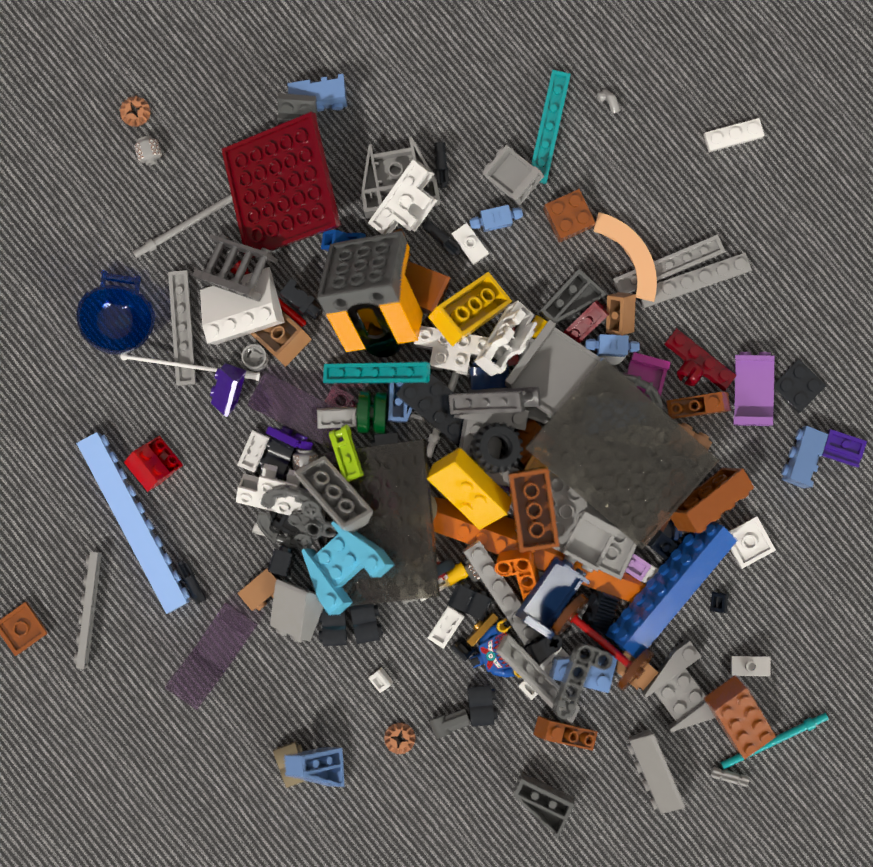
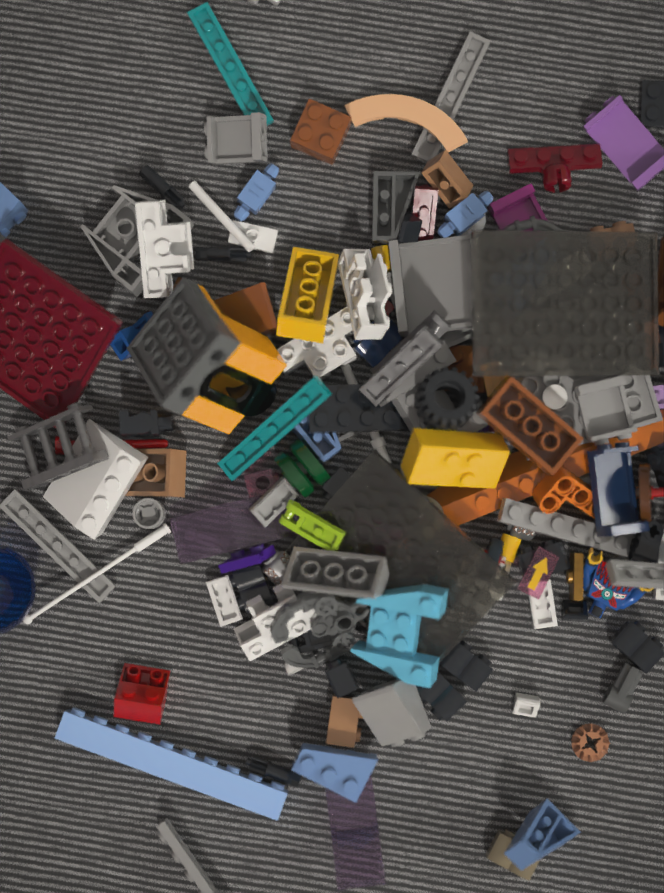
camera: 35 degrees left, 0 degrees up
(228, 388) = (149, 564): dark purple slope -> none
(228, 613) = (335, 768): none -> medium blue wedge
(459, 605) = (538, 572): none -> clear pink tile
(461, 215) = (221, 216): none -> white bar
(566, 506) = (554, 396): none -> white sticker
(569, 323) = (410, 228): none -> black slope
(699, 405) = (590, 200): dark orange slope -> none
(700, 279) = (489, 85): light grey plate -> none

